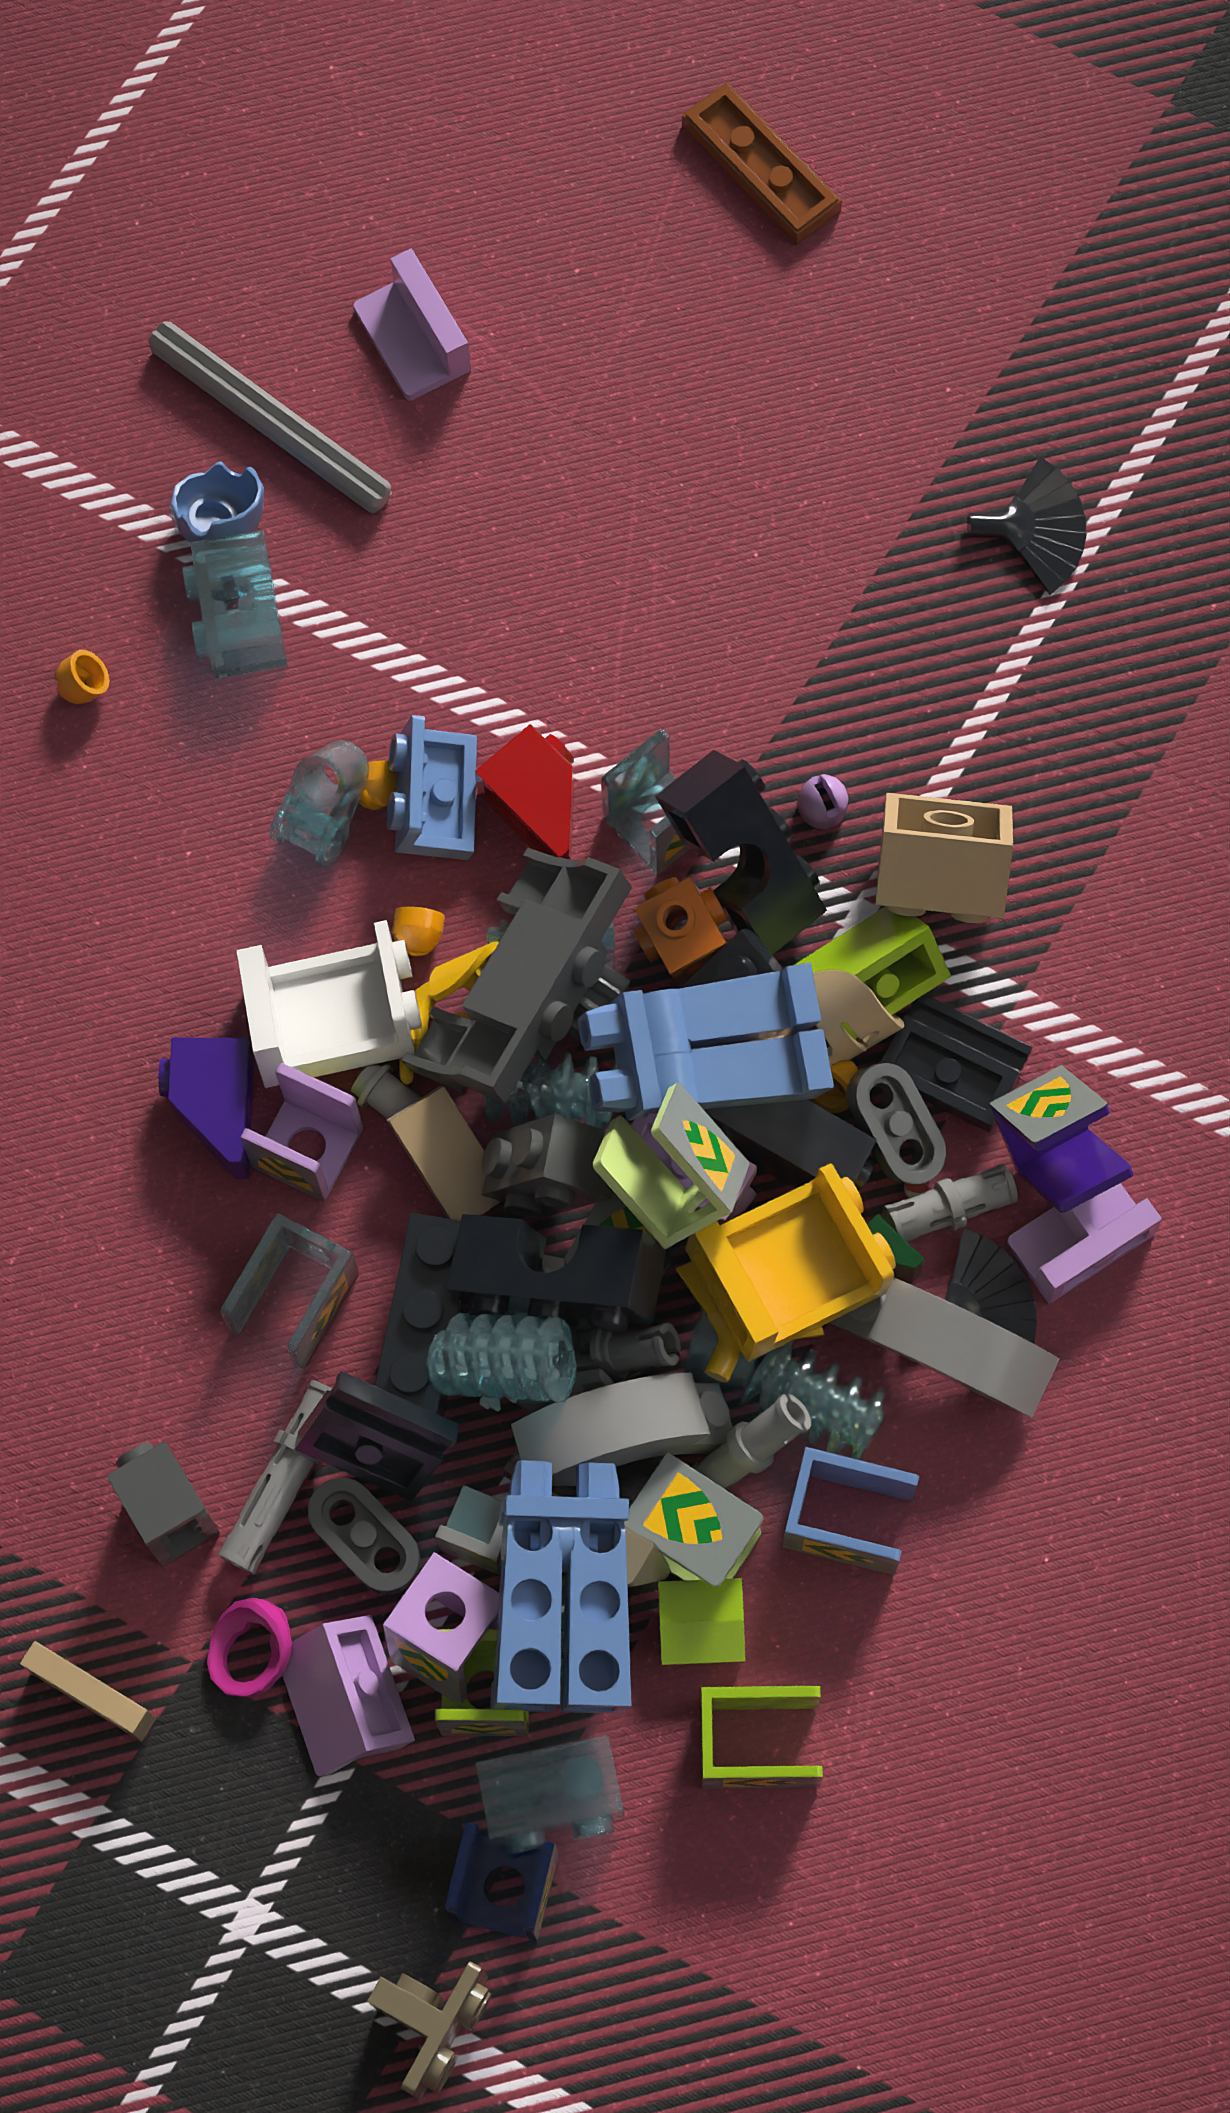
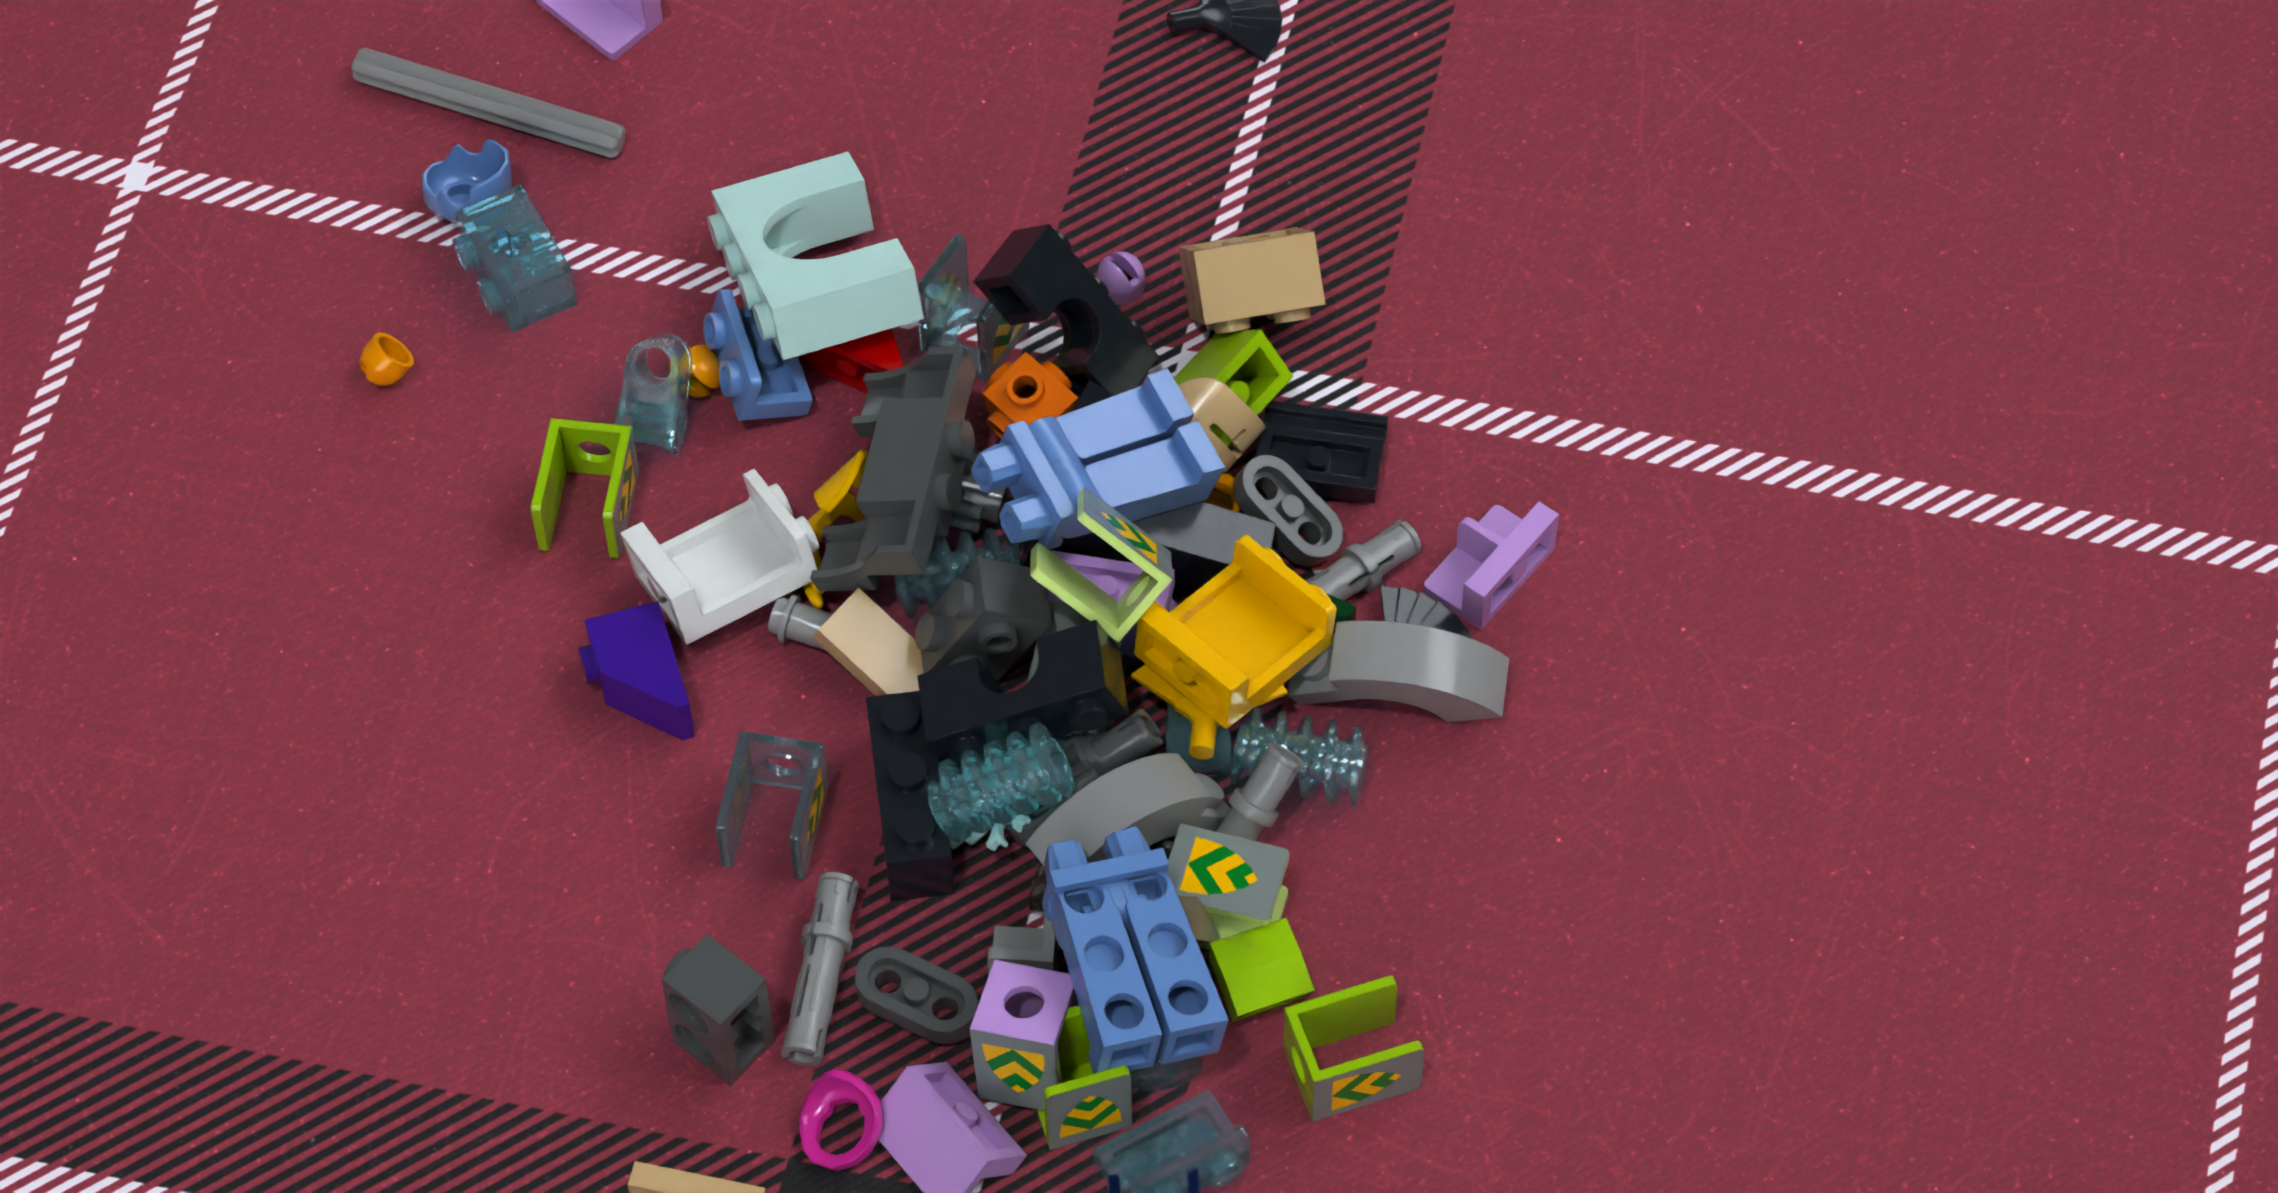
camera: 20 degrees left, 15 degrees down
(208, 837) = (564, 455): none -> lime piece
(307, 1106) = (743, 667): lavender piece -> none
(376, 1436) = (900, 895): black plate -> none
(418, 928) = (787, 472): light orange hinge -> none
(503, 763) = (811, 301): none -> light aqua arch
(853, 1474) = (1367, 868): medium blue piece -> none
(1051, 1140) = (1452, 498): dark purple piece -> none

